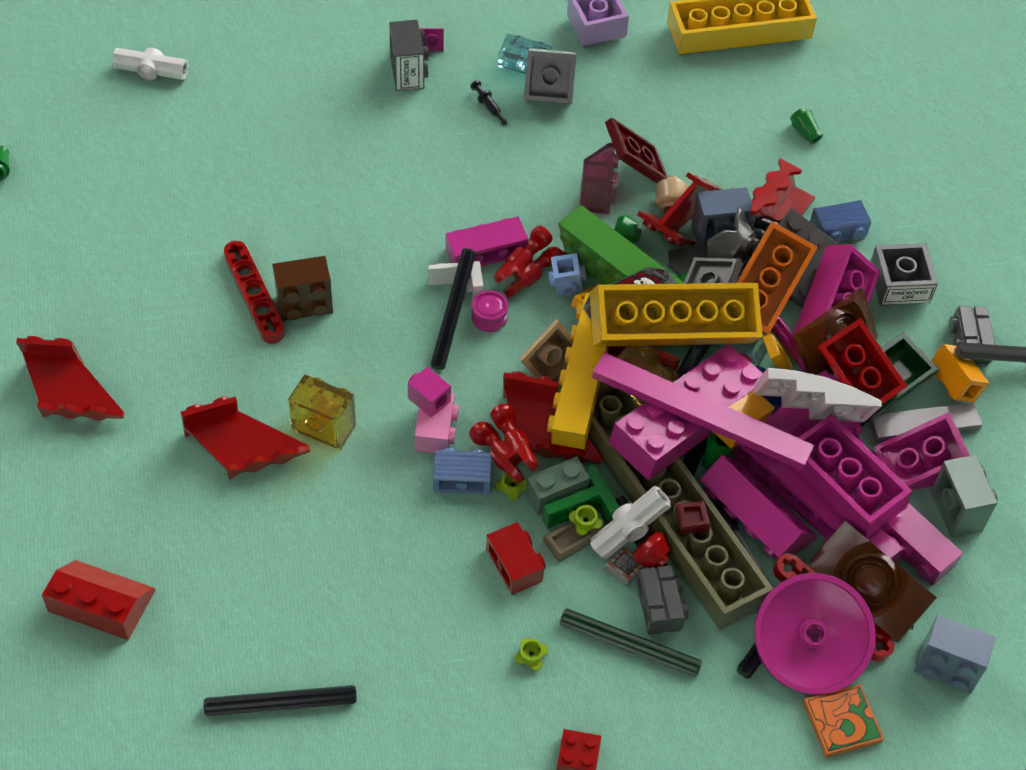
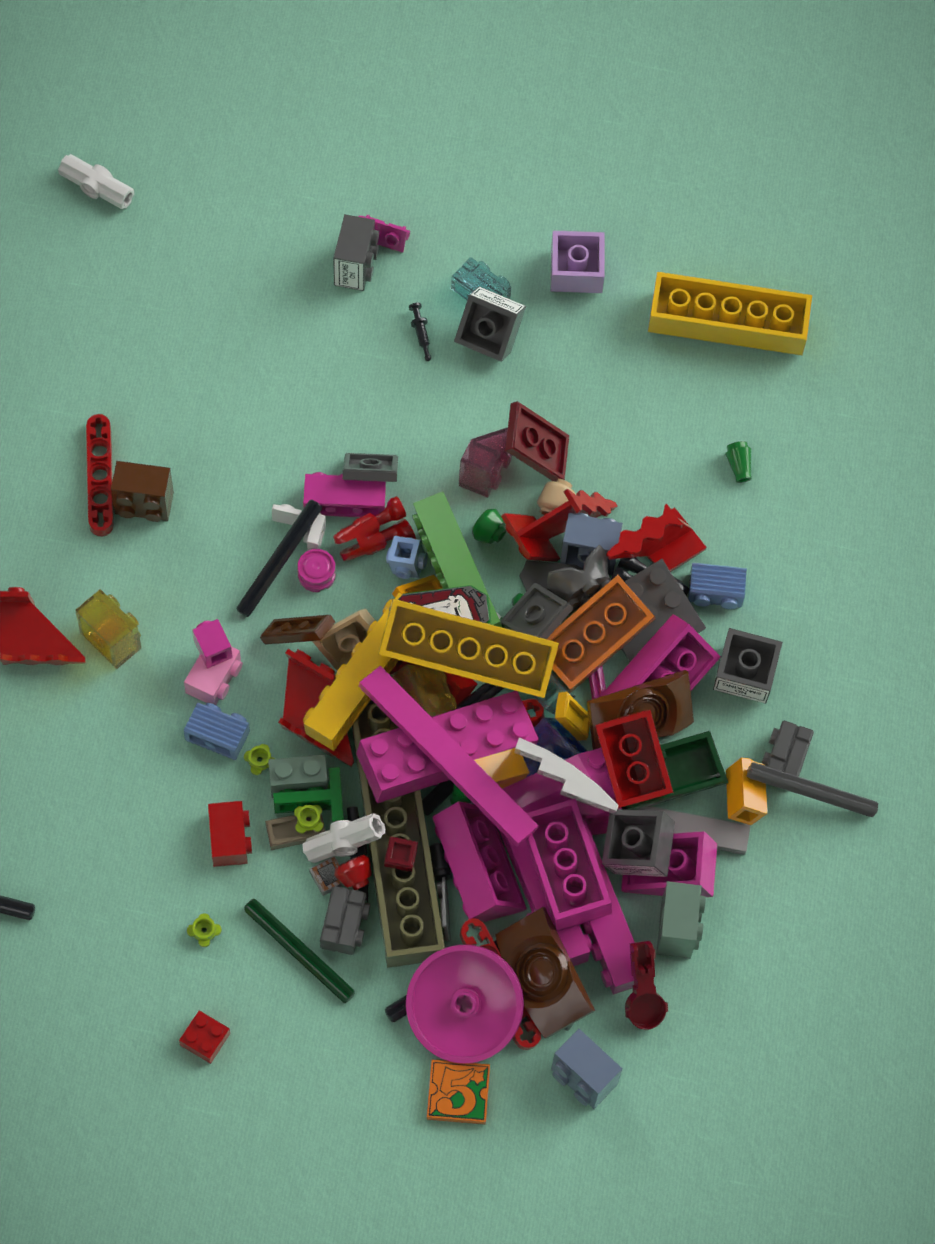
camera: 20 degrees right, 10 degrees up
(500, 213) = (370, 467): none -> dark grey tile
(501, 358) = (297, 629): none -> reddish brown tile
(513, 449) = (264, 727): red piece -> none
(897, 438) = (638, 843): none -> dark grey brick
(971, 581) = (644, 1005): none -> dark red piece

